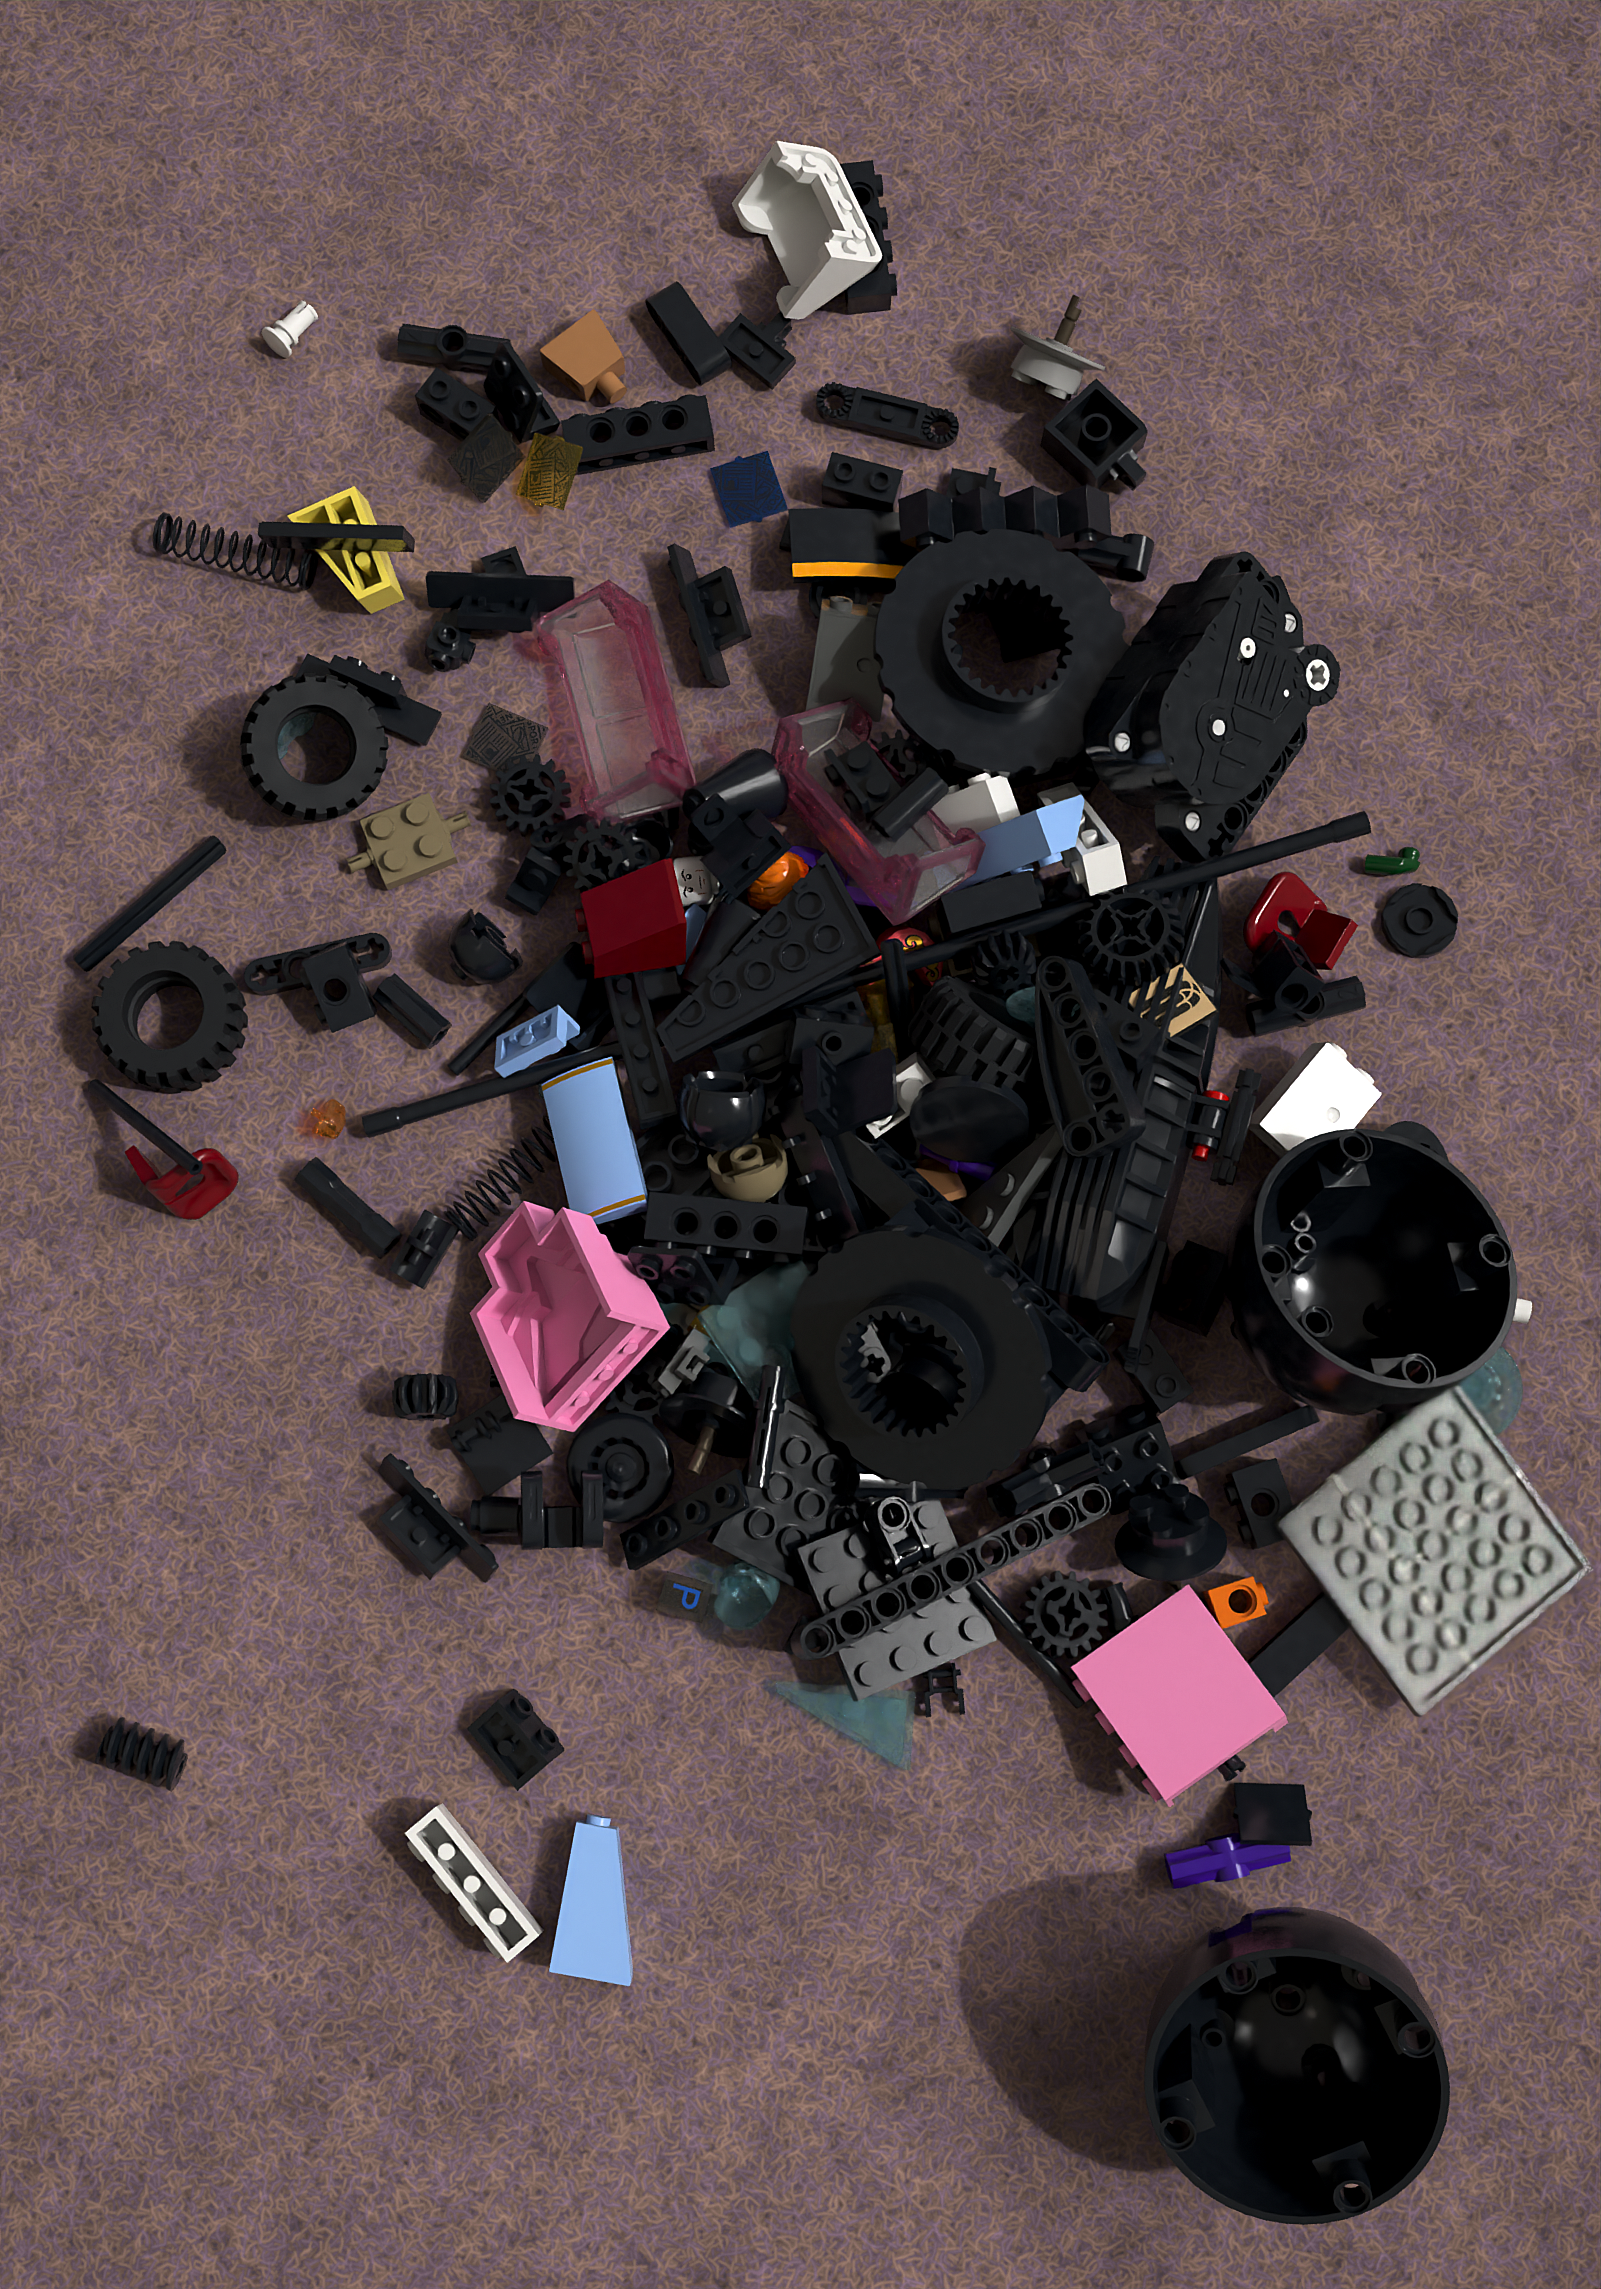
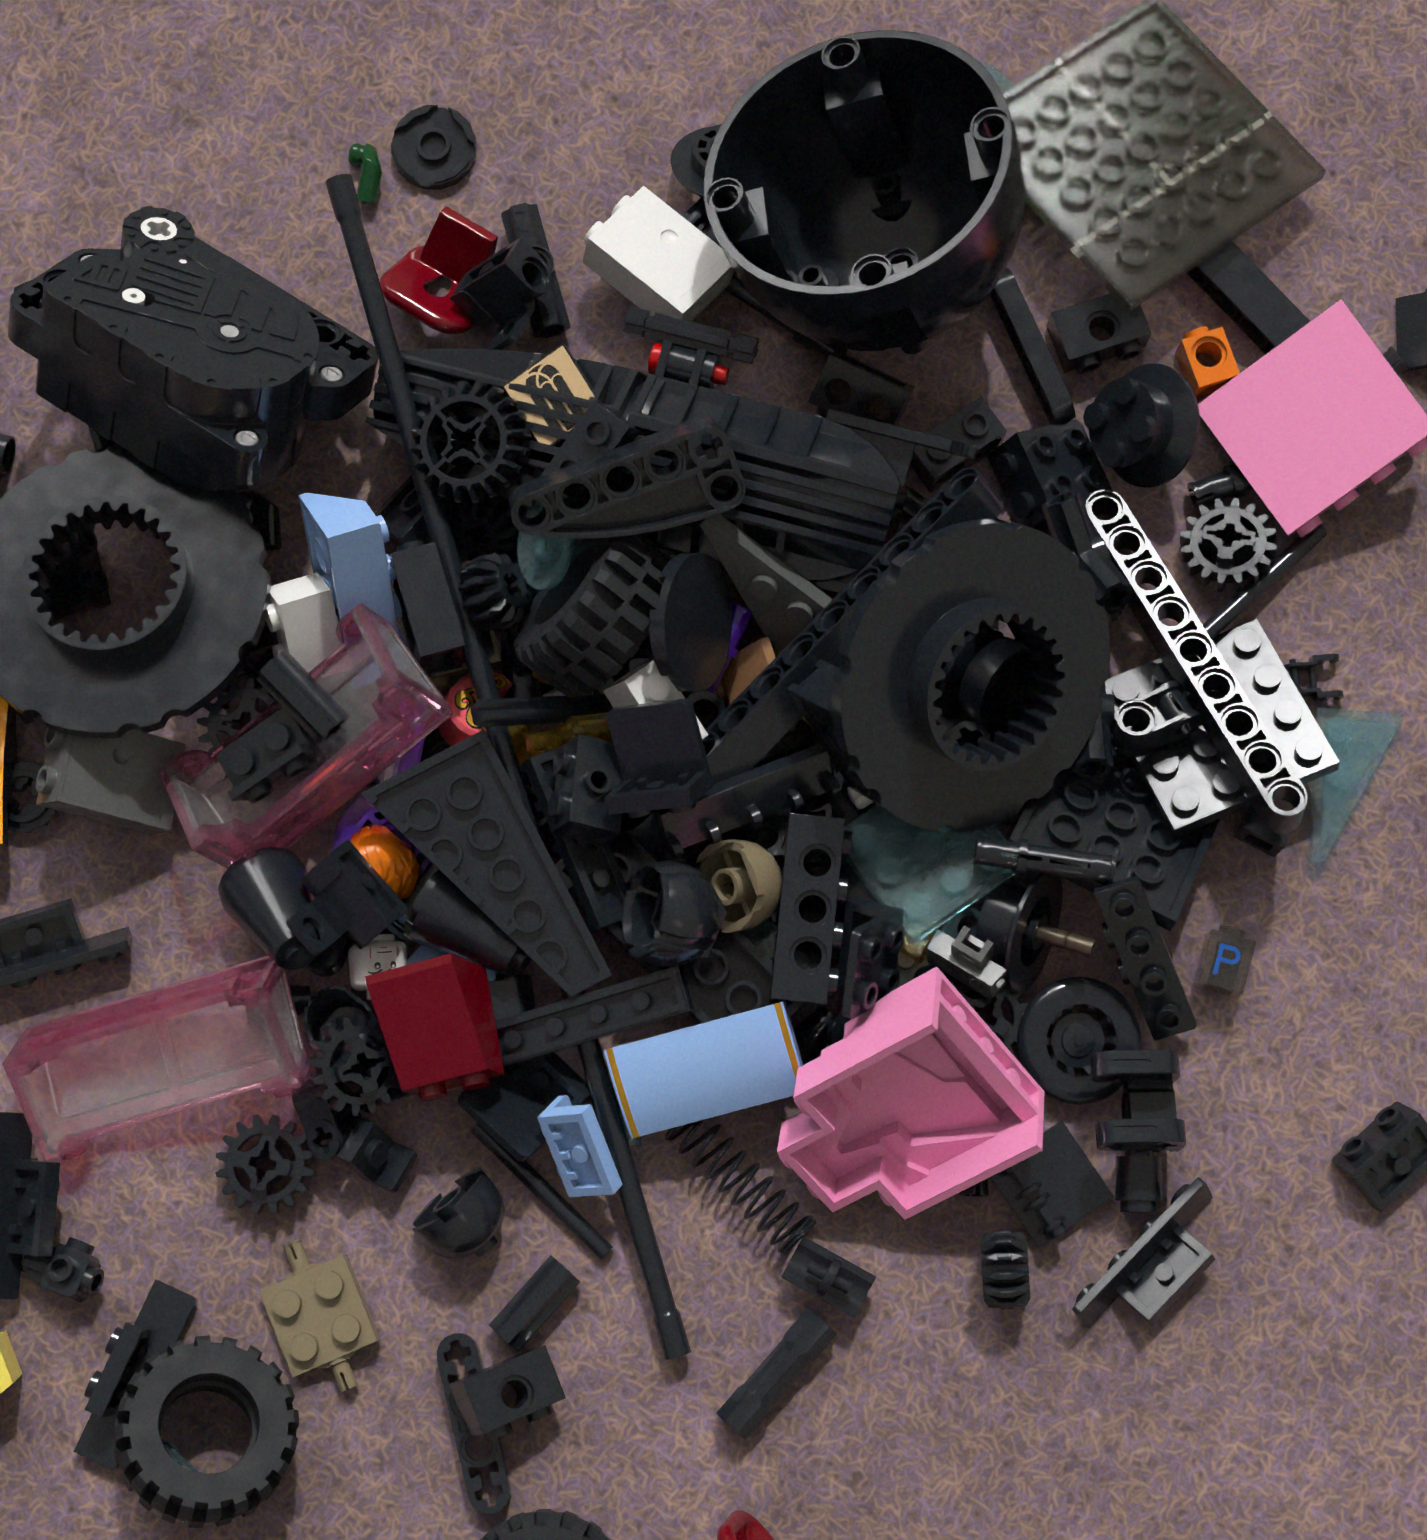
camera: 90 degrees left, 0 degrees up
(330, 1119) = (668, 1401): clear orange piece -> none
(503, 738) = (192, 1200): clear smoke piece -> none
(745, 1595) = (1223, 894): clear light blue helmet -> none
(1097, 854) = (375, 475): white brick -> none

